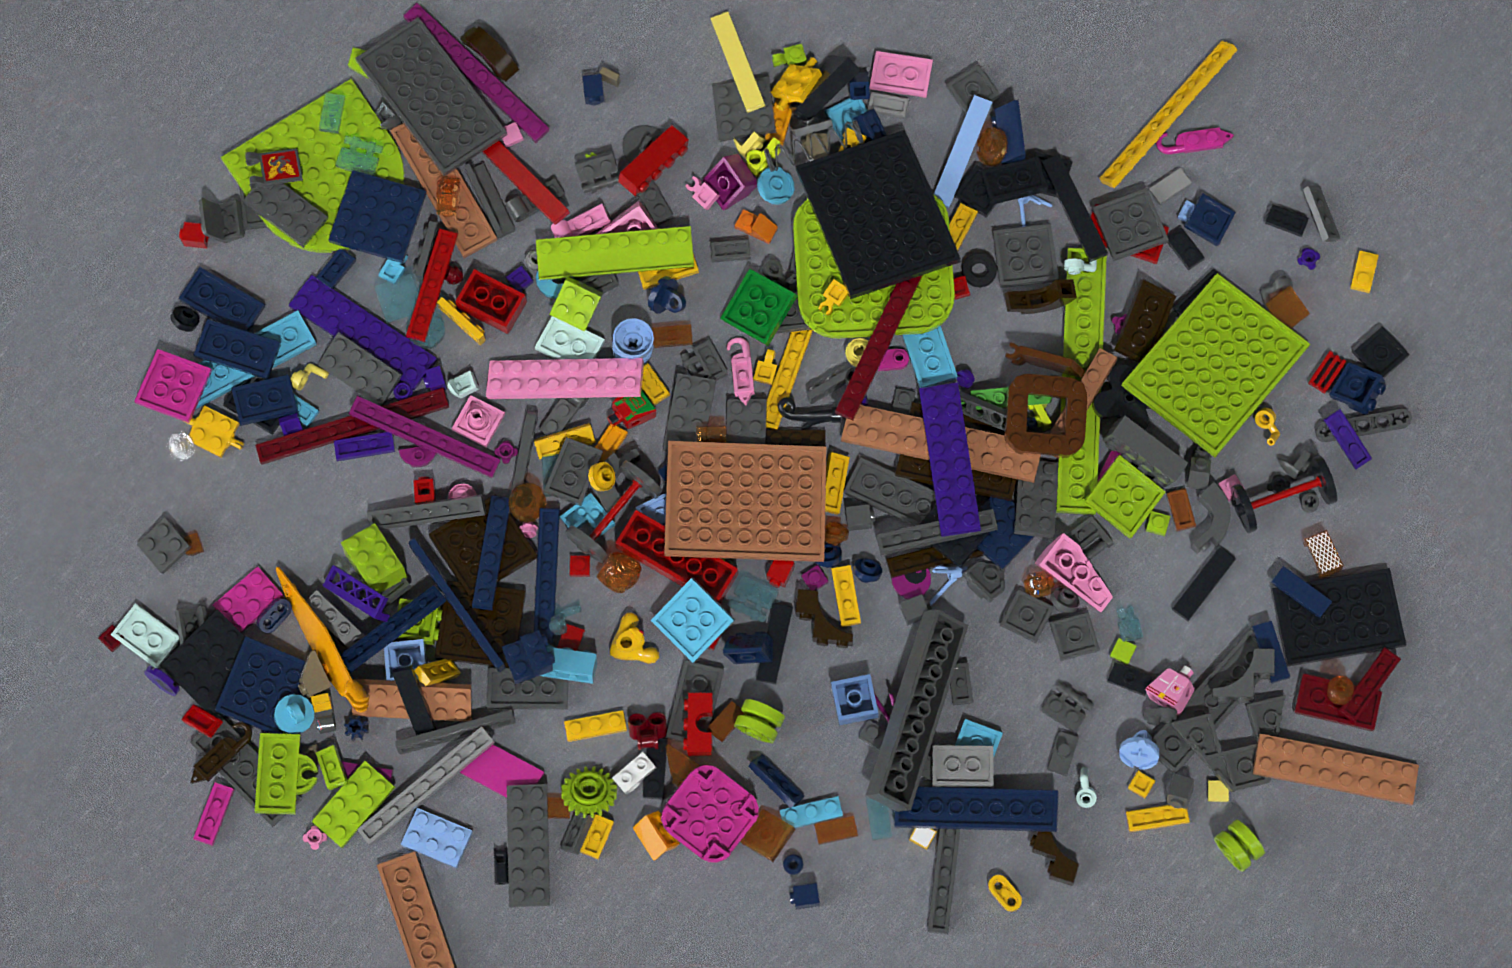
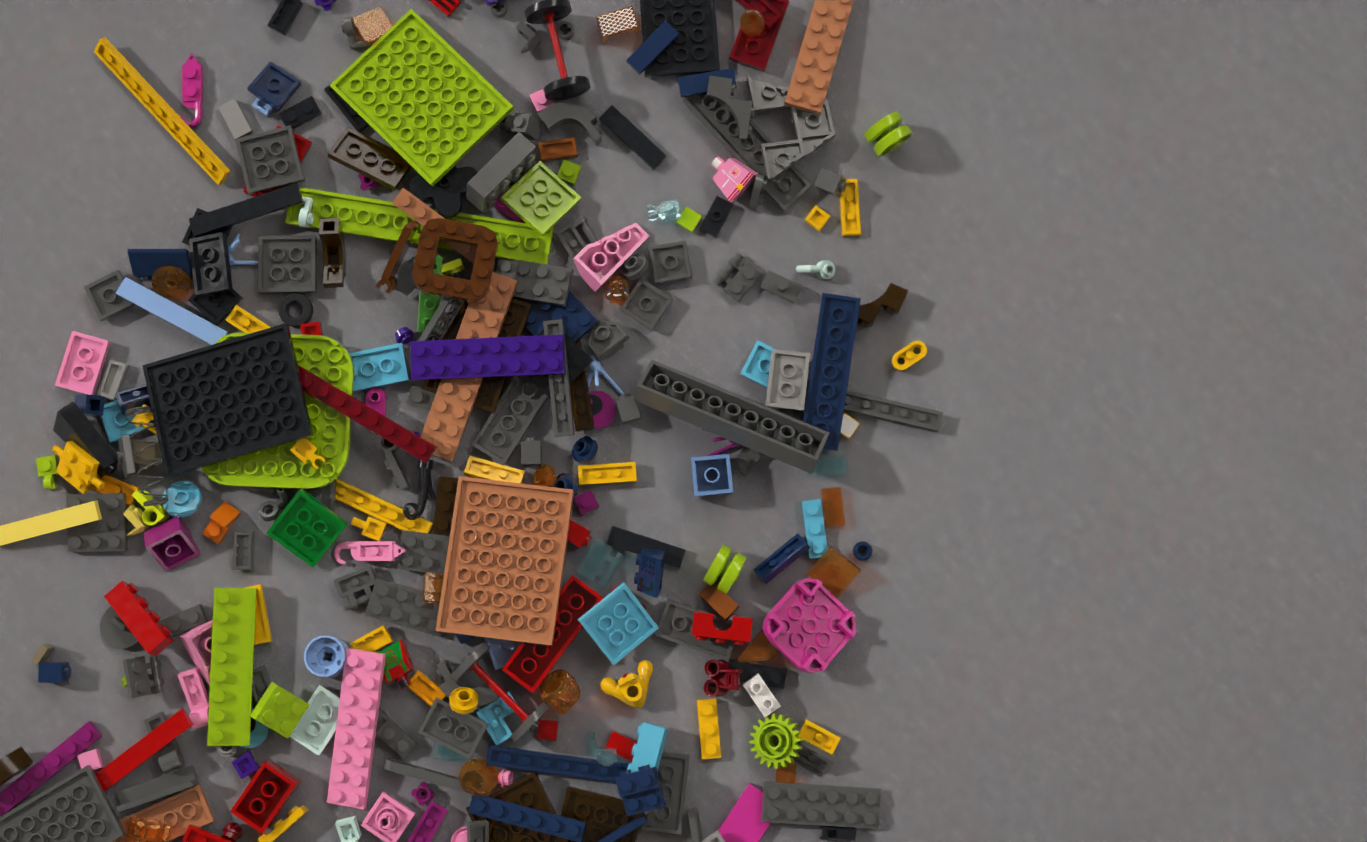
camera: 90 degrees left, 10 degrees up
(552, 444) = (420, 745): yellow tile -> none
(654, 836) = (822, 682): light orange panel -> none
(663, 296) = (284, 621): dark blue tile -> none
(672, 336) = (324, 616): clear orange plate -> none
(704, 195) = (181, 571): bright pink plate -> none
(805, 896) = (895, 542): dark blue brick -> none
(823, 632) = (614, 509): dark brown arch -> none
(855, 350) = (364, 437): light yellow plate -> none
(961, 685) = (707, 372): dark grey plate -> none
(1139, 751) = (789, 214): light blue tile -> none
(1217, 792) = (831, 150): light yellow tile -> none
(1268, 424) = (483, 58): yellow plate -> none
(1277, 479) = (545, 51): black plate -> none

